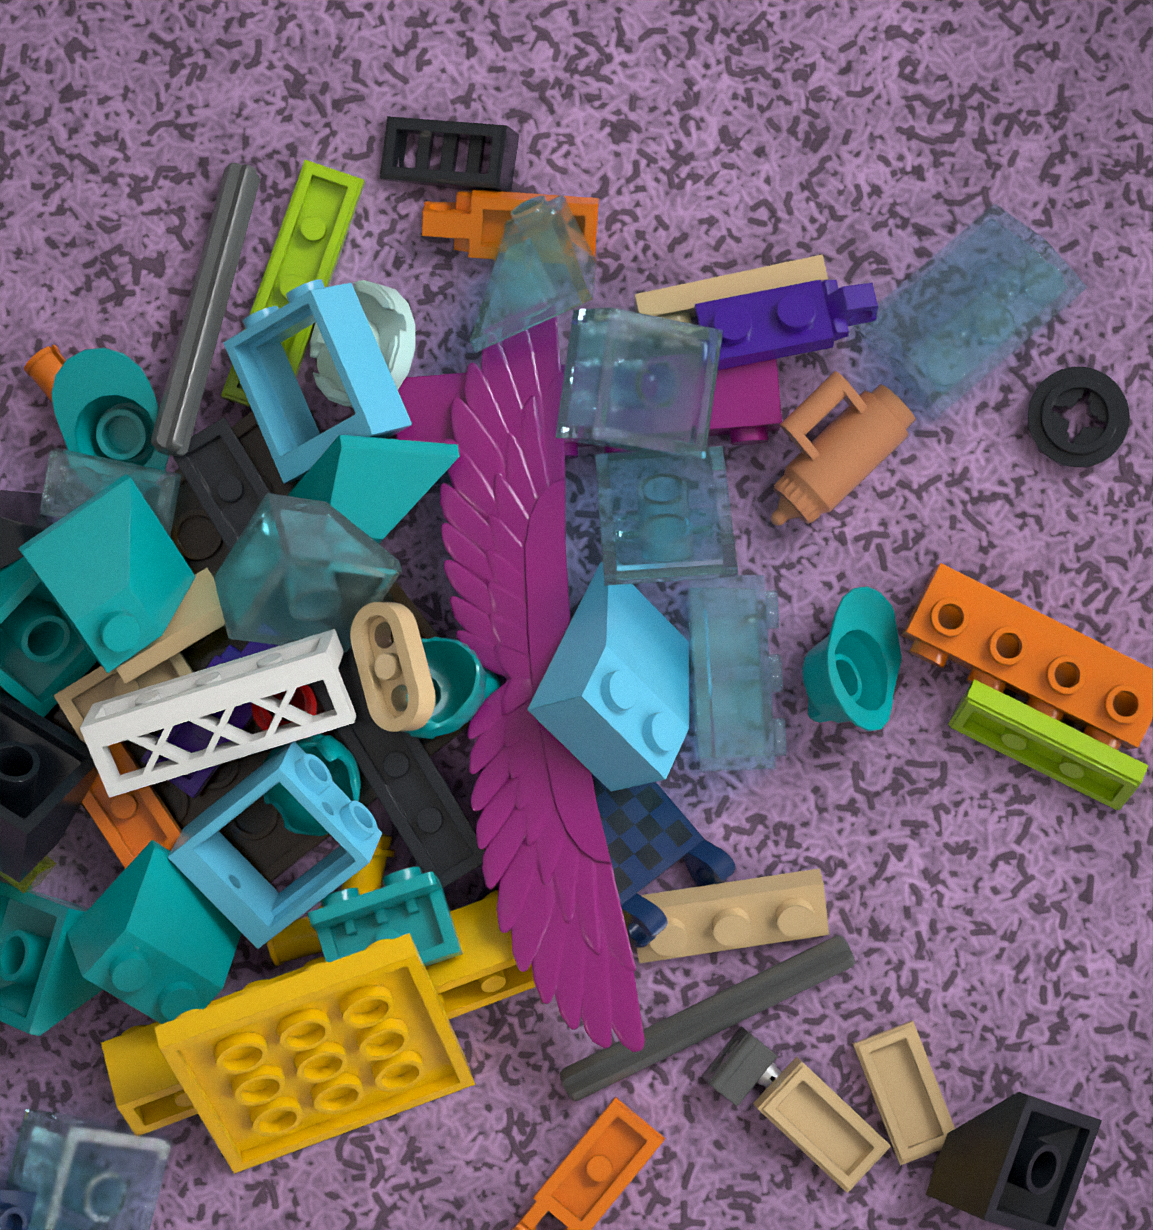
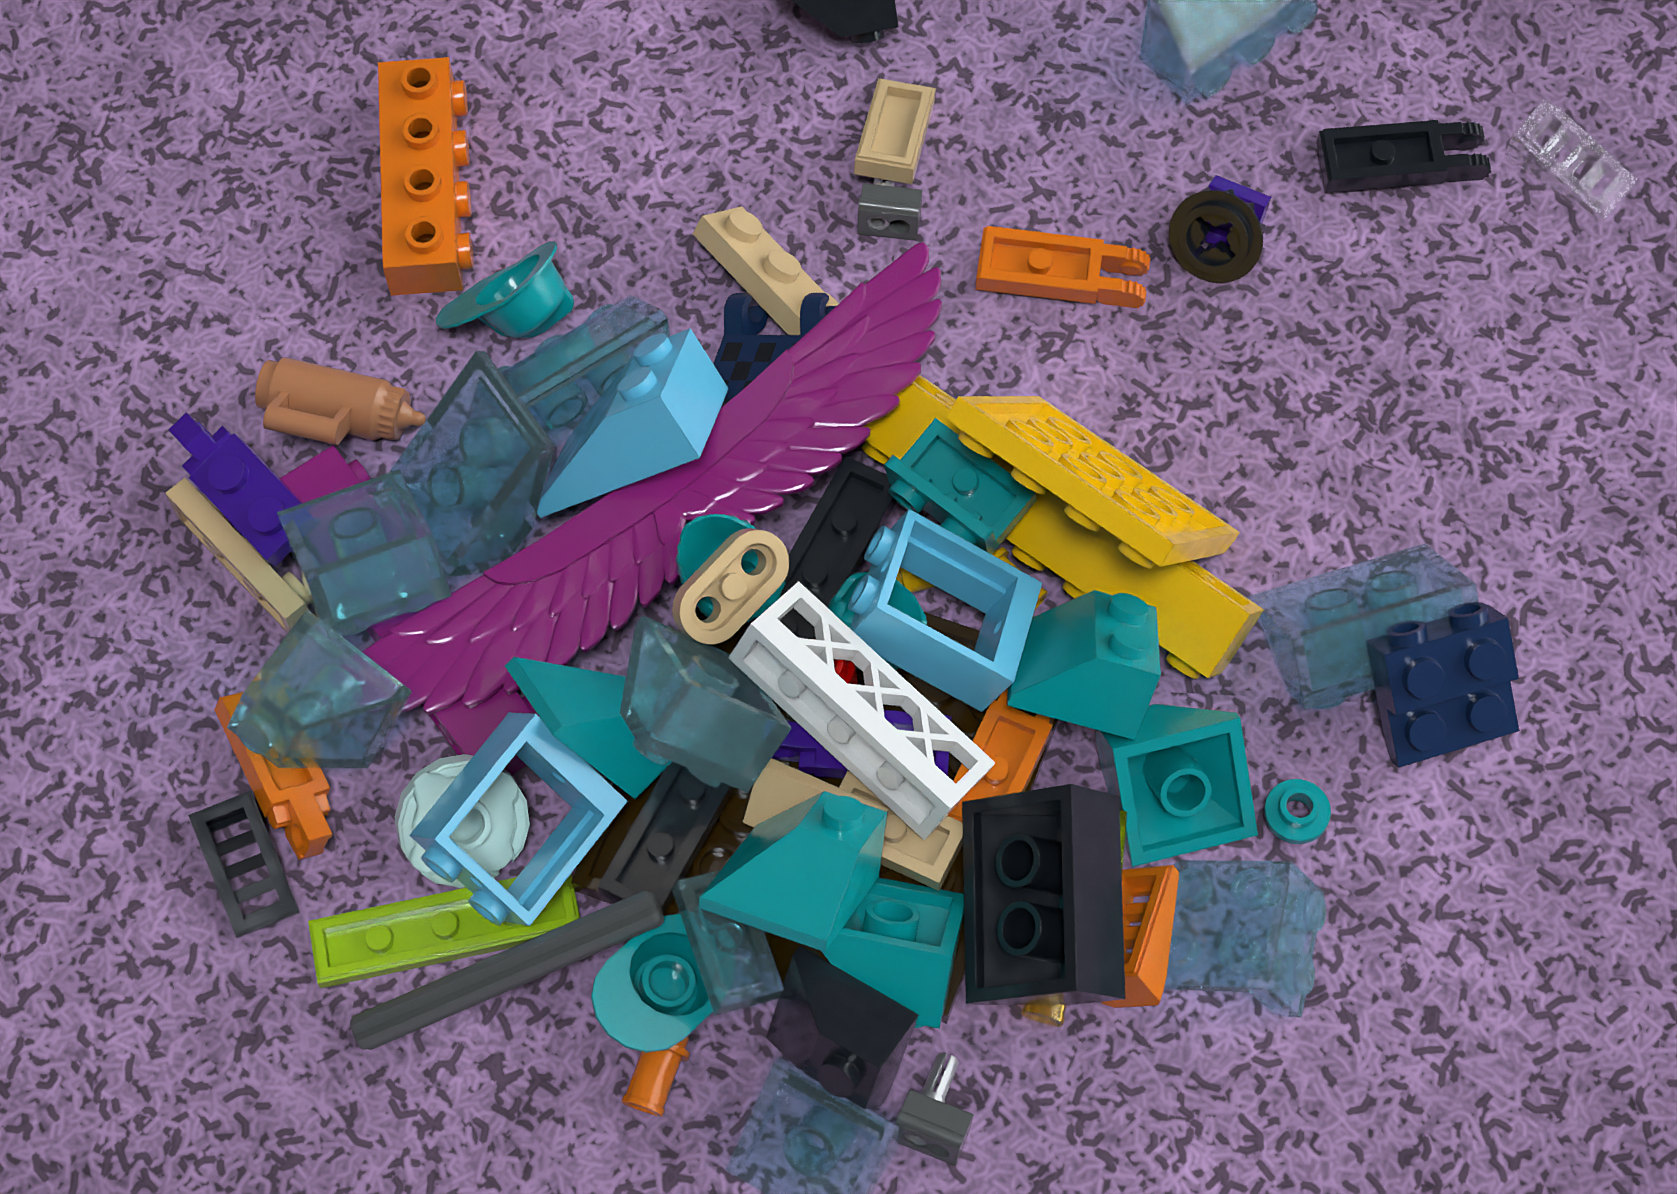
camera: 125 degrees left, 20 degrees down
(709, 1017) = (857, 250): dark grey axle -> none
(905, 1091) = (829, 93): tan tile -> none
(970, 309) = (147, 362): clear light blue slope -> none
(1047, 745) = (487, 132): lime tile -> none
(1104, 404) = (177, 241): black gear -> none

